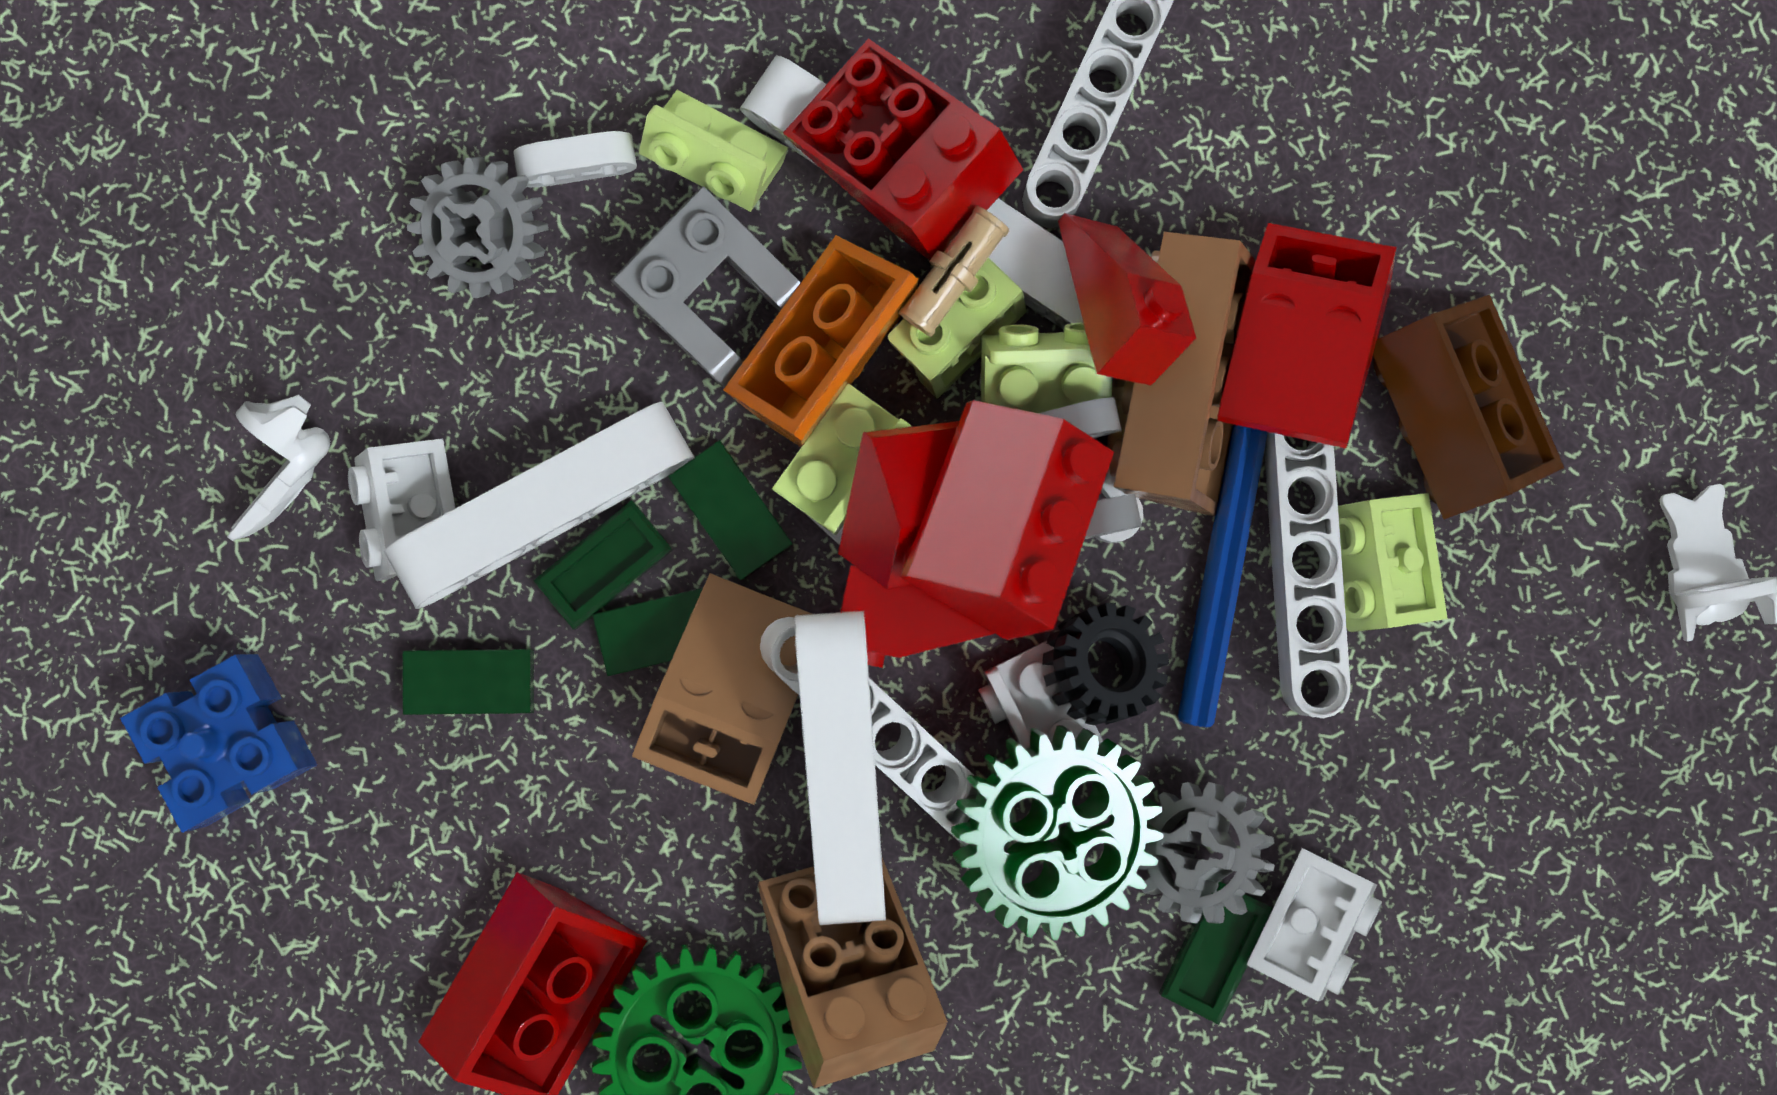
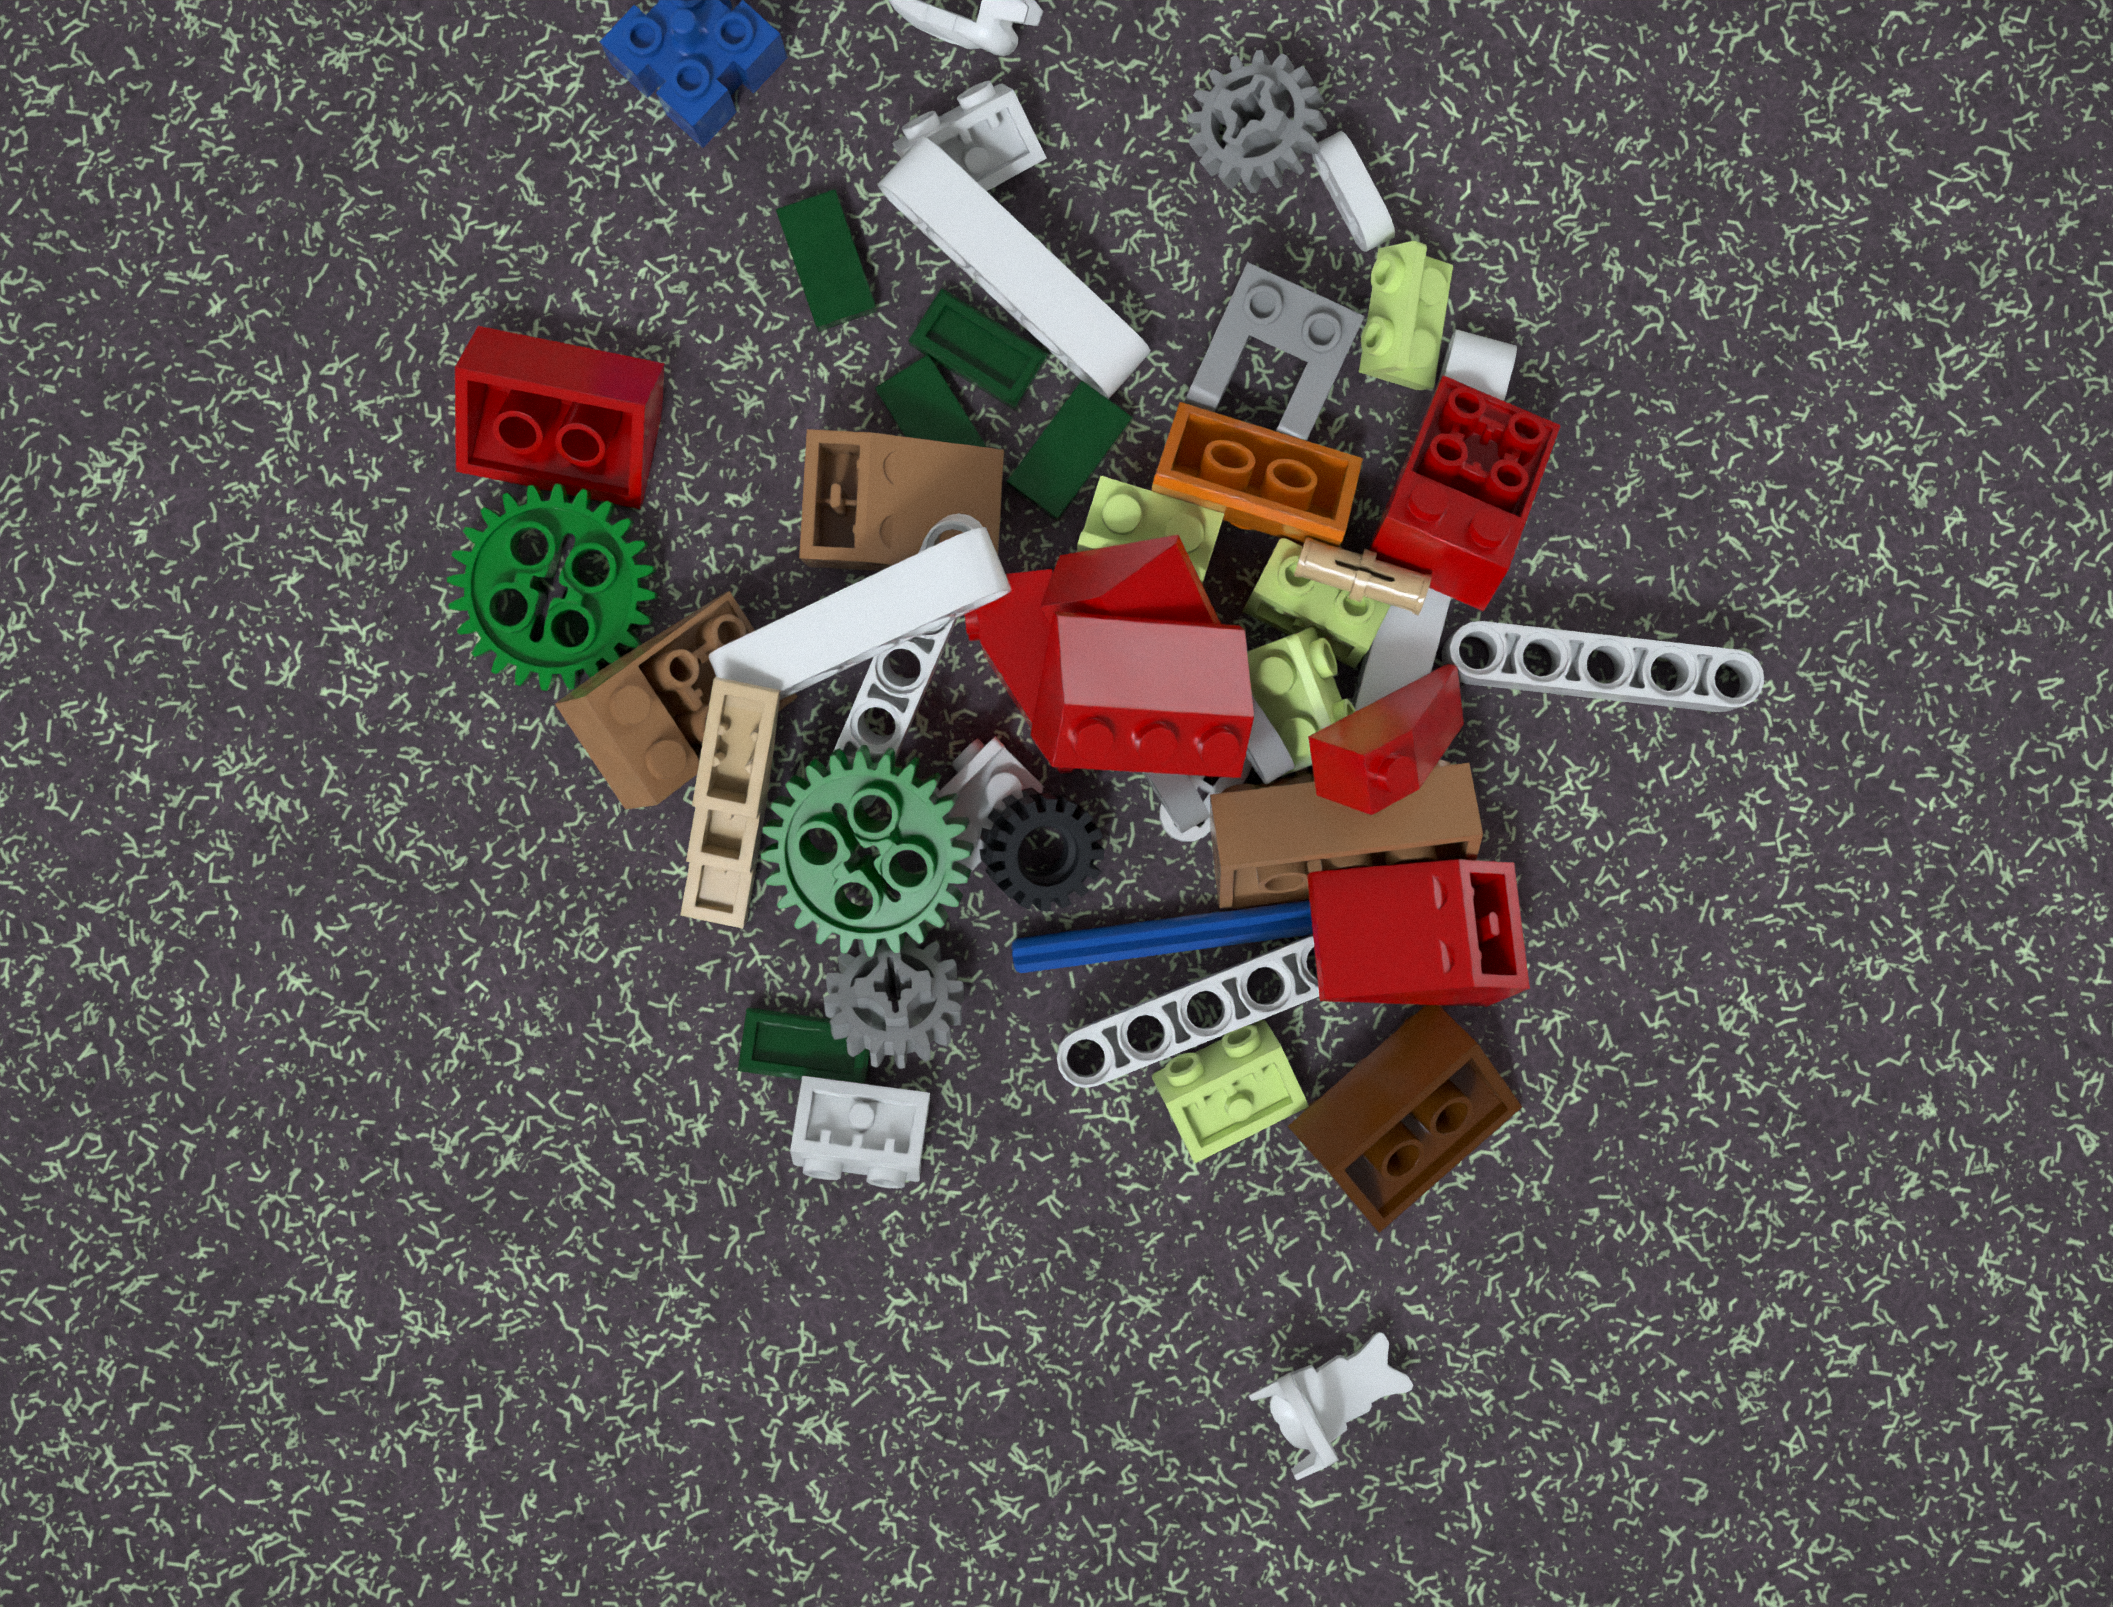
camera: 75 degrees right, 0 degrees up
(965, 949) = (730, 801): none -> tan slope

